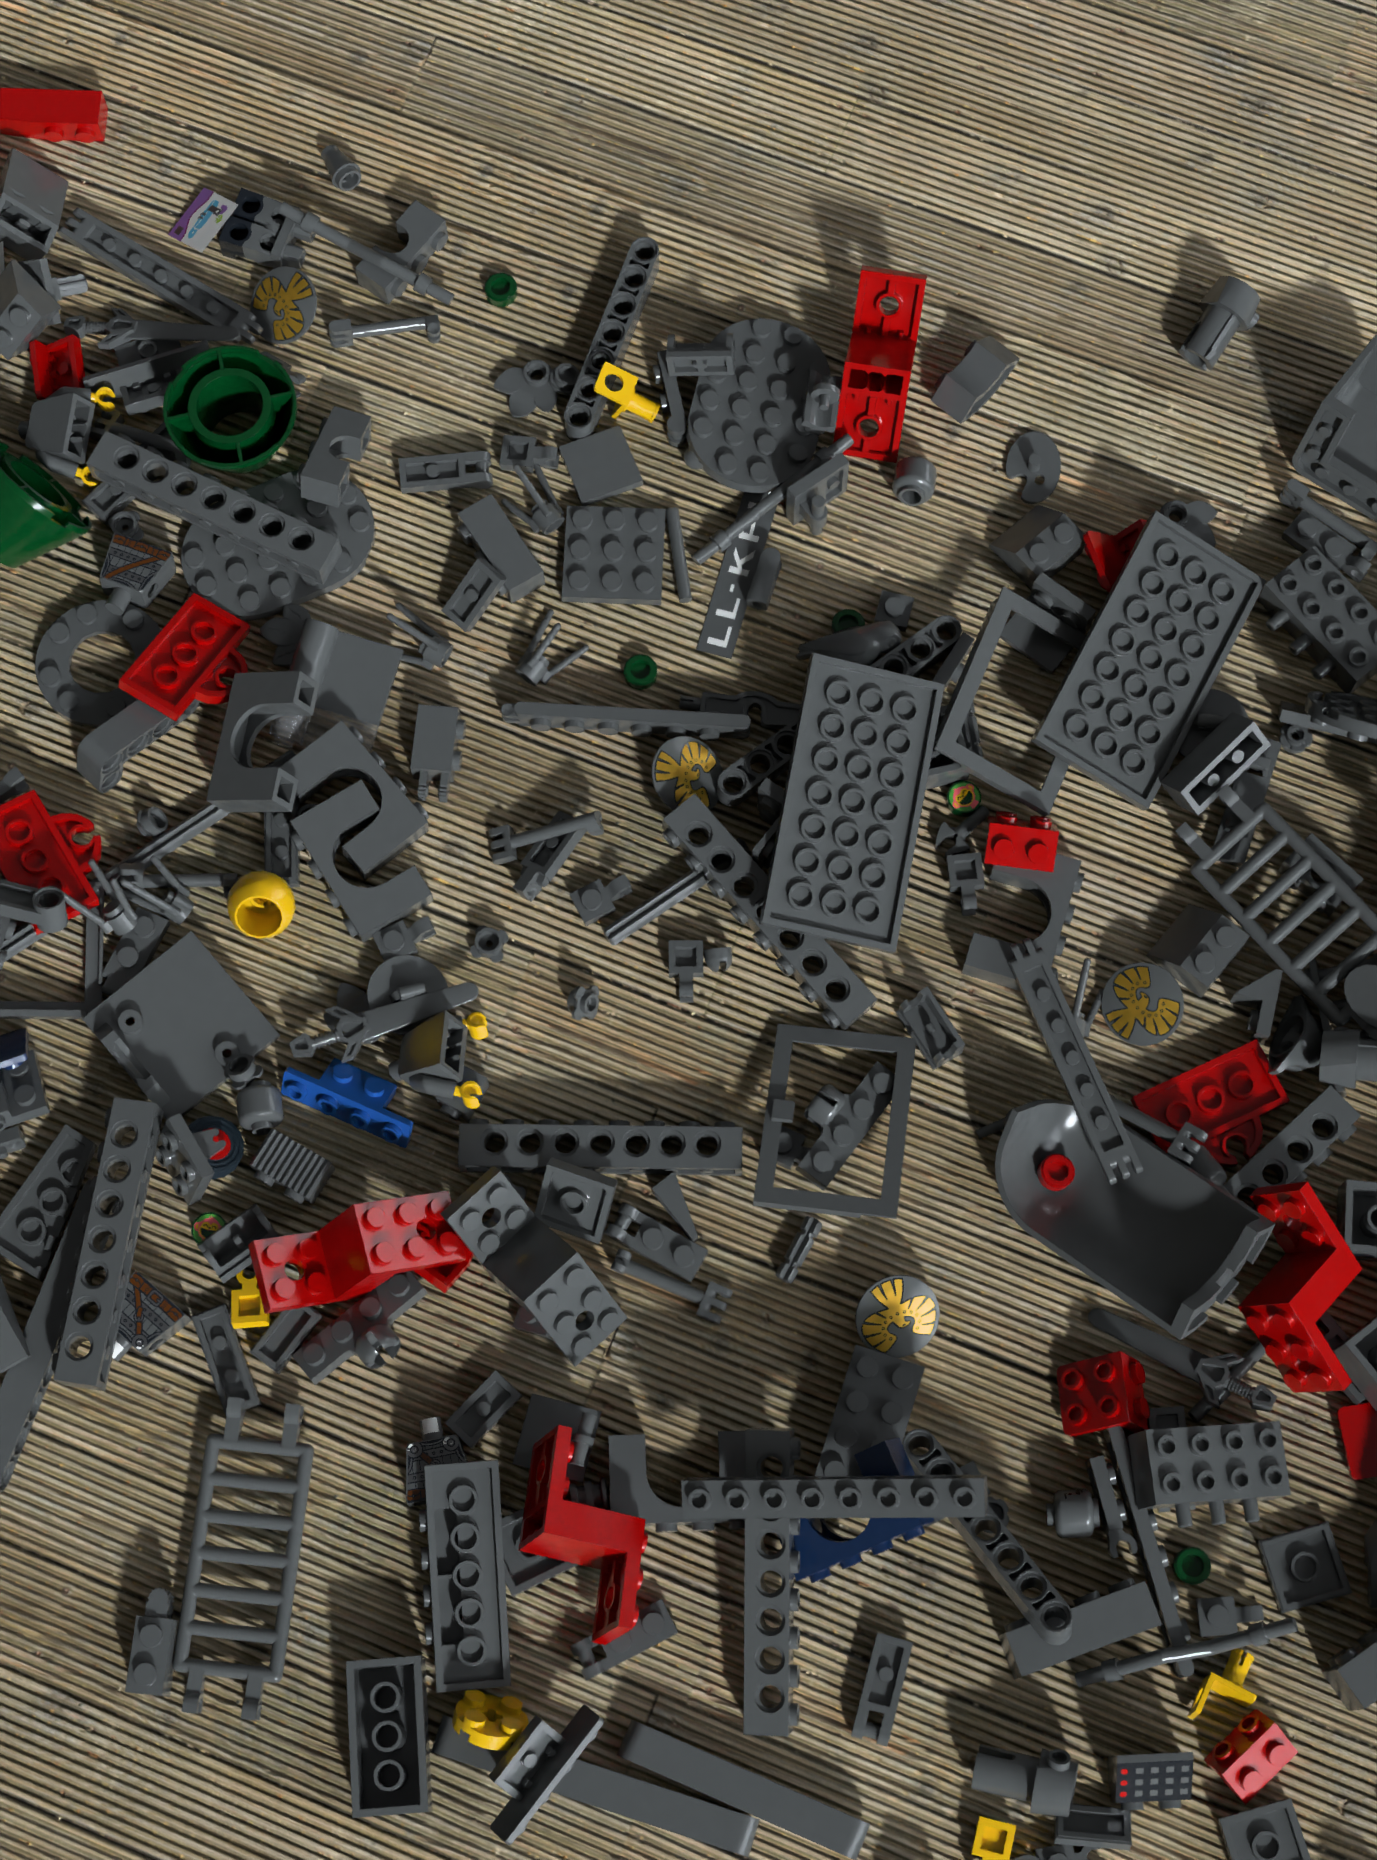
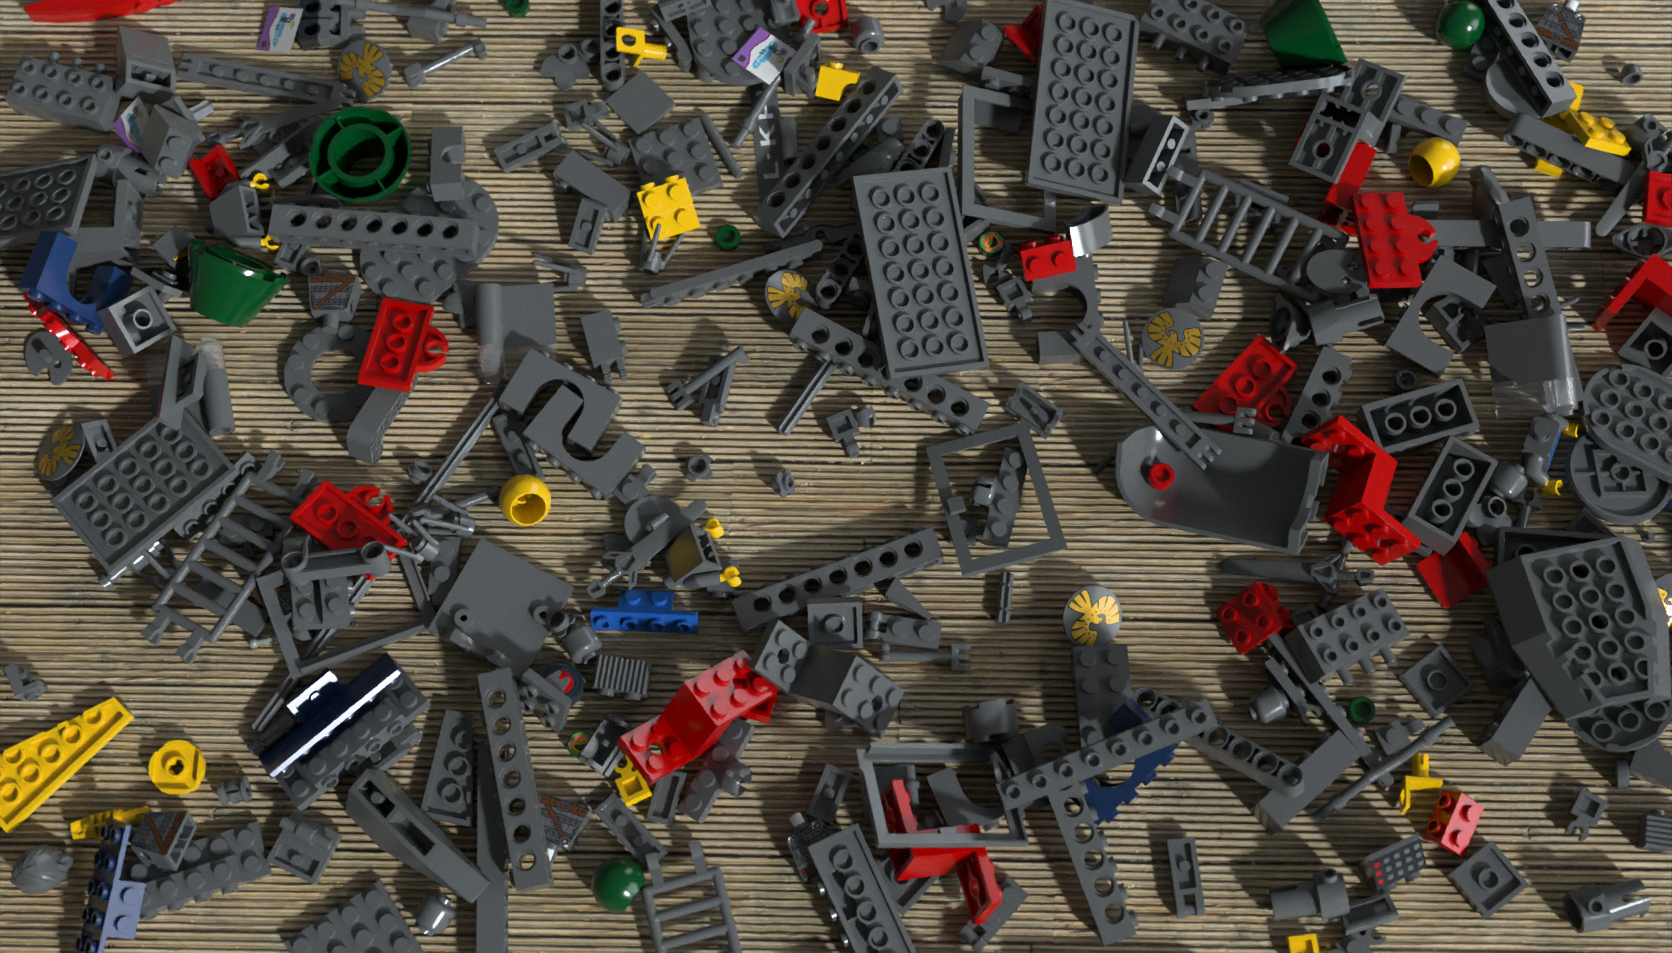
camera: 20 degrees left, 0 degrees up
(181, 1418) = (617, 883): none -> dark green helmet
(252, 704) = (460, 361): dark grey arch -> none
(581, 607) = (669, 206): none -> yellow plate
(595, 900) = (762, 409): dark grey plate -> none
(628, 1411) = (936, 754): none -> dark grey door
(716, 1396) = (990, 720): none -> dark grey brick
(772, 461) = (764, 55): none -> sticker
(805, 609) = (828, 152): none -> dark grey brick
(849, 522) = (834, 79): none -> yellow brick
(1091, 828) = (1089, 230): none -> dark grey brick
(1263, 997) = (1253, 304): dark grey slope -> none

